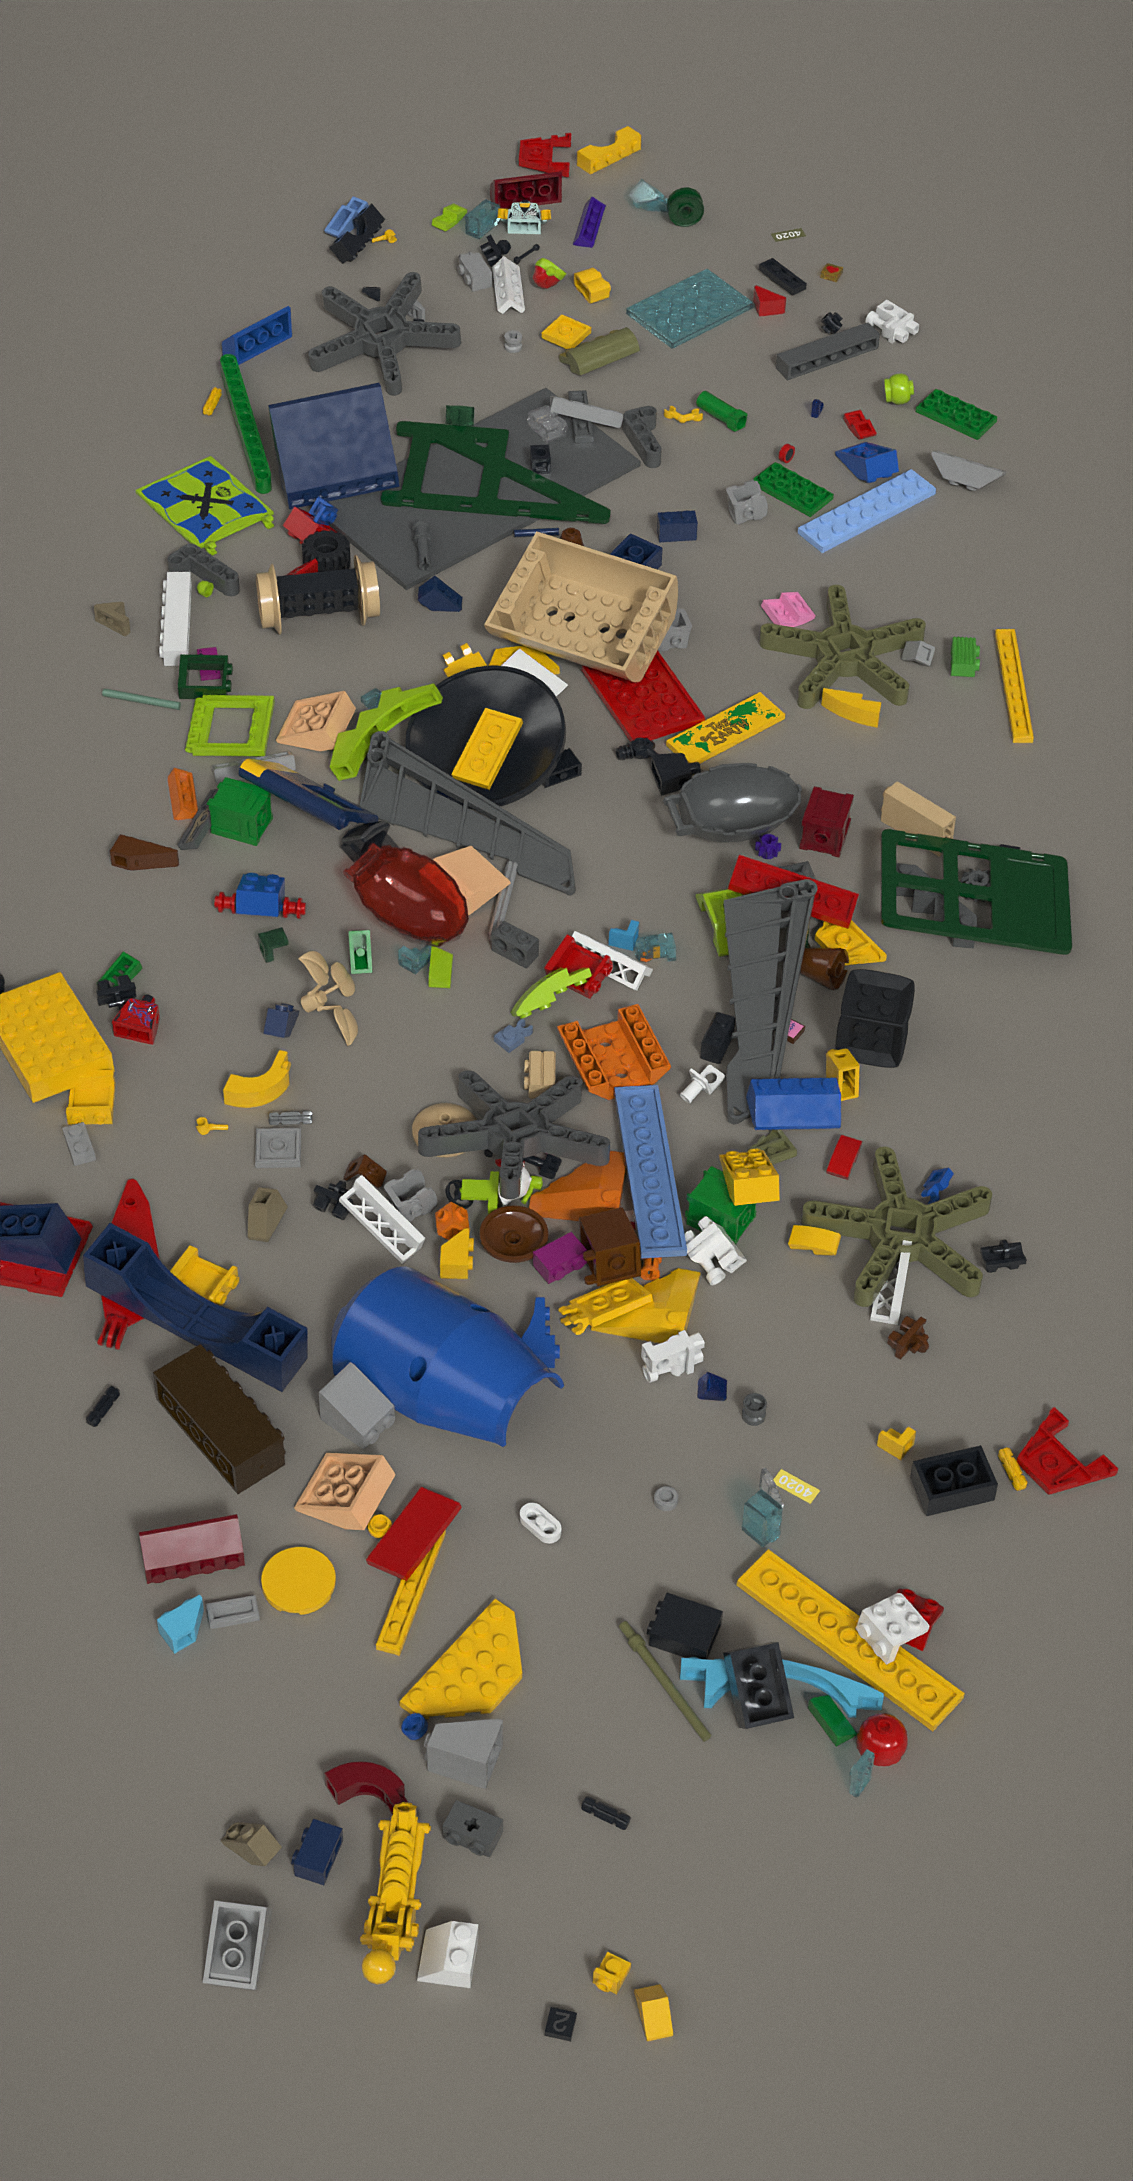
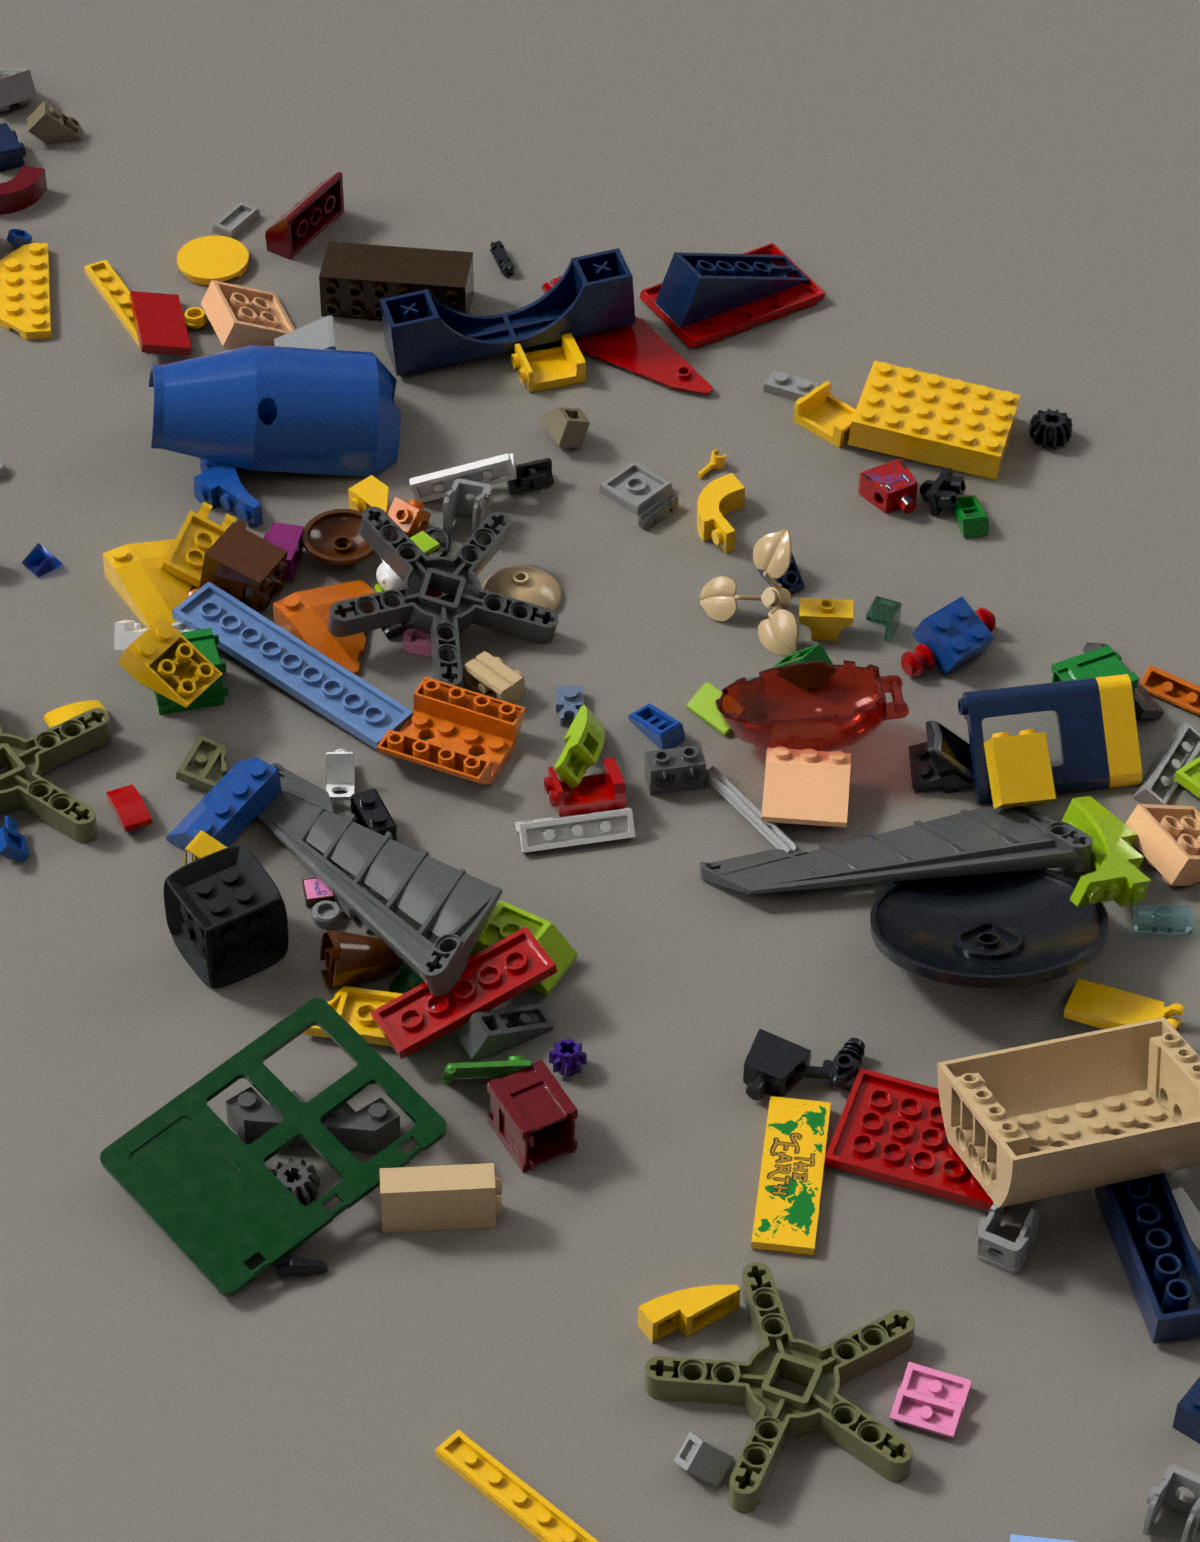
camera: 135 degrees right, 5 degrees down
(141, 855) = (1119, 606): reddish brown slope -> none
(182, 1624) = (257, 186): medium azure slope -> none
(298, 968) = (825, 617): none -> yellow brick
(353, 791) = (1019, 769): none -> yellow brick
(367, 1168) = (532, 512): reddish brown bracket -> none
(486, 970) = (660, 728): none -> blue slope
(487, 748) = (961, 899): yellow plate -> none
(543, 1523) = (72, 390): white plate -> none
(566, 769) = (889, 985): black brick -> none
(624, 938) = (588, 858): dark azure panel -> none
(655, 947) = (543, 870): clear light blue leg -> none
(673, 1356) = (92, 532): white hips -> none
(734, 802) = (635, 1032): dark grey windscreen -> none
(801, 1014) = (326, 914): none -> light grey tile
(829, 853) = (484, 1069): none -> bright green container
(964, 657) = (642, 1499): bright green brick -> none

